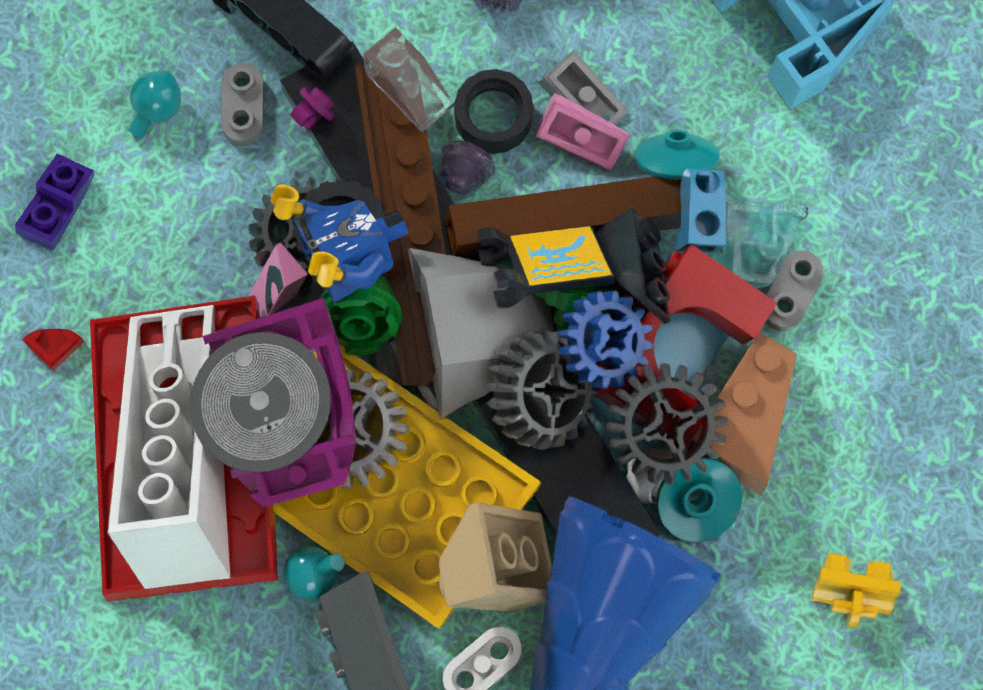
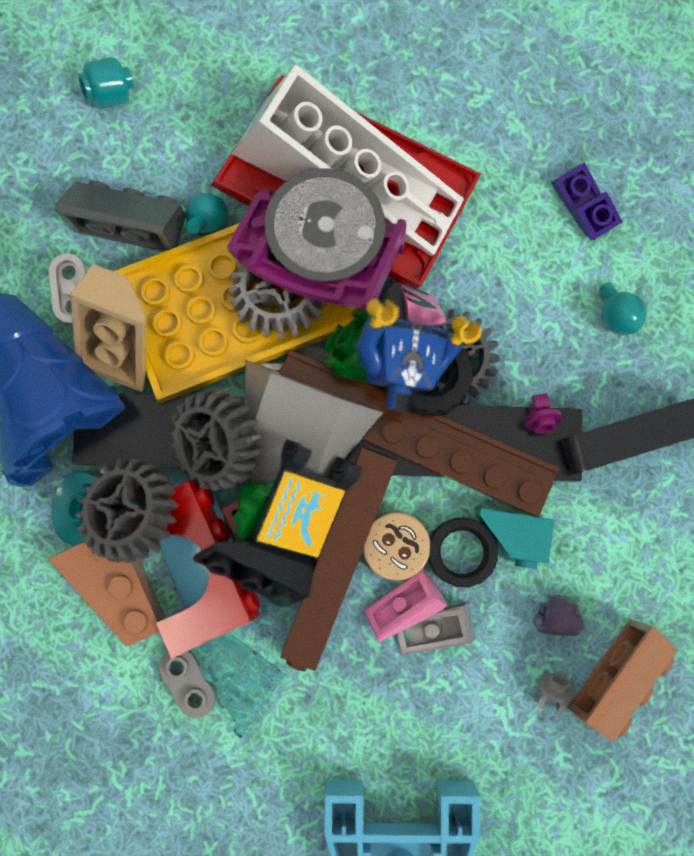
camera: 125 degrees right, 10 degrees up
(53, 345) = (479, 142): red tile -> none
(242, 101) = (582, 376): light grey plate -> none
(407, 79) = (516, 492): clear slope -> none
(449, 59) = (520, 535): none -> teal slope
(465, 167) = (430, 501): clear purple cone -> none
(528, 166) = (397, 546): none -> tan head
(589, 335) = (212, 502): blue gear -> none
(674, 152) = (338, 665): teal dish -> none
(702, 211) = (274, 650): dark azure leg -> none

